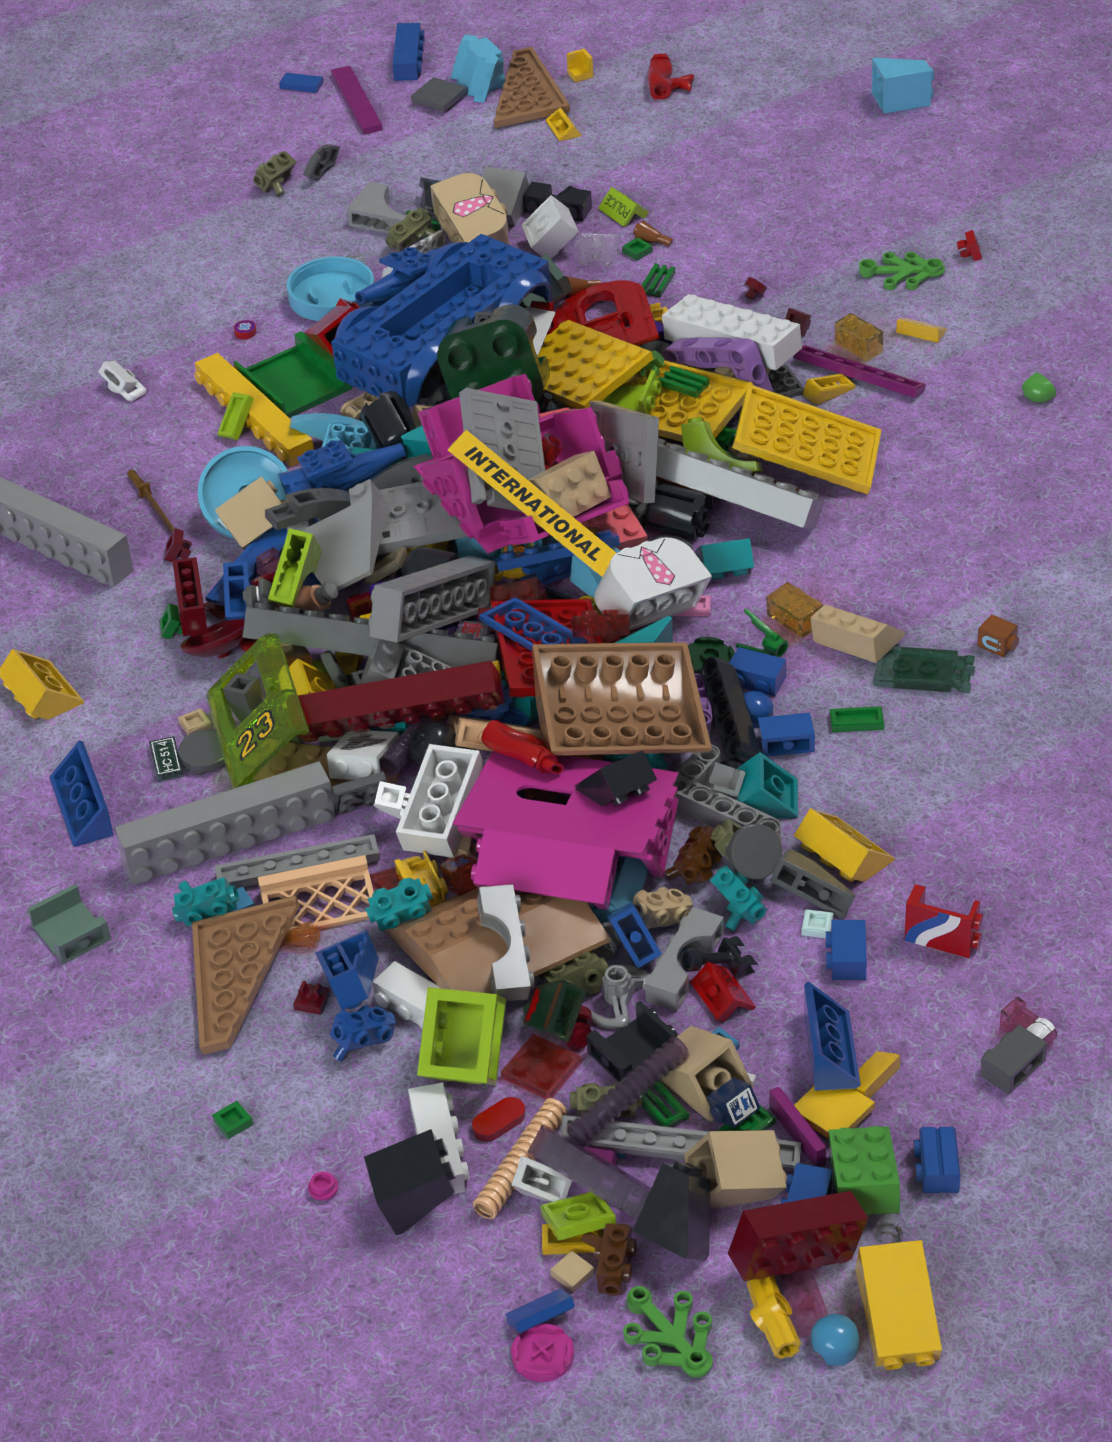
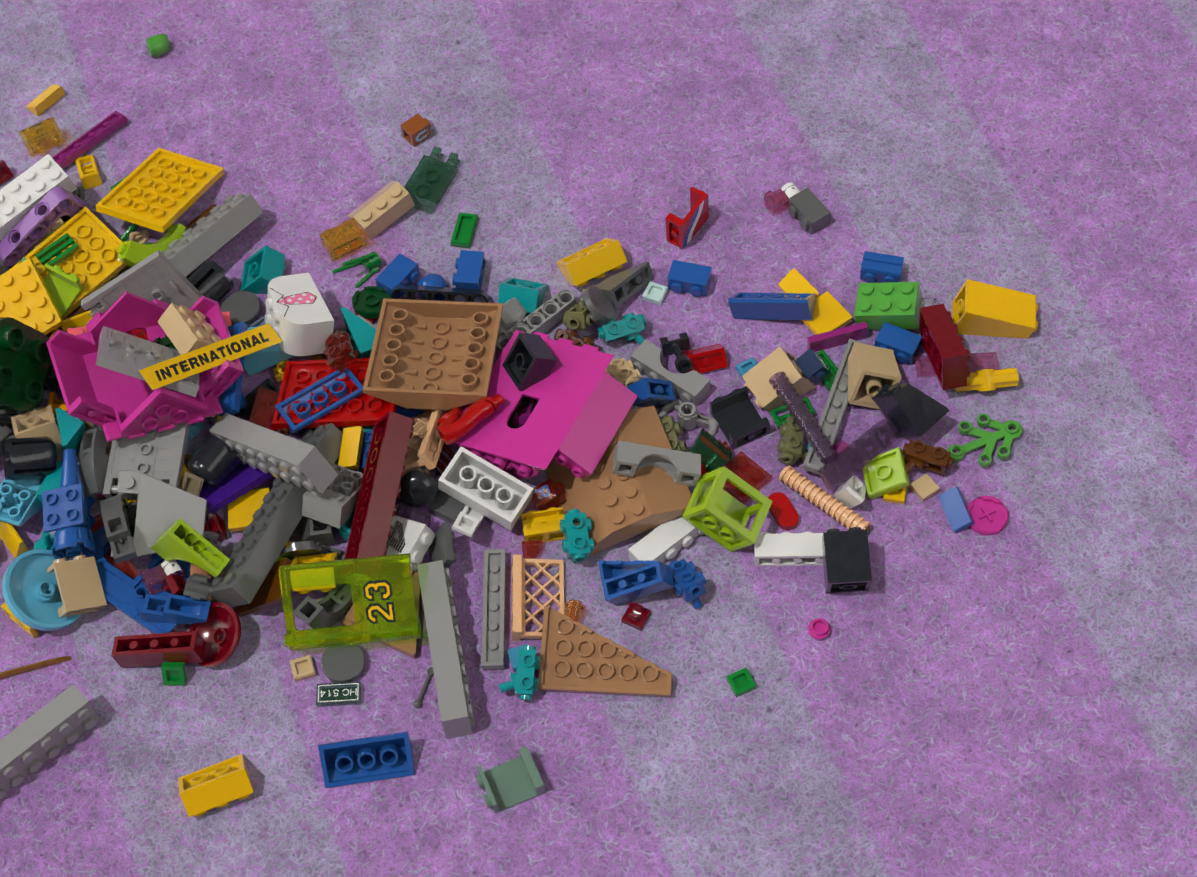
camera: 75 degrees left, 15 degrees up
(177, 546) = (74, 660): dark red tile -> none
(835, 1339) = (1009, 351): dark azure hair -> none

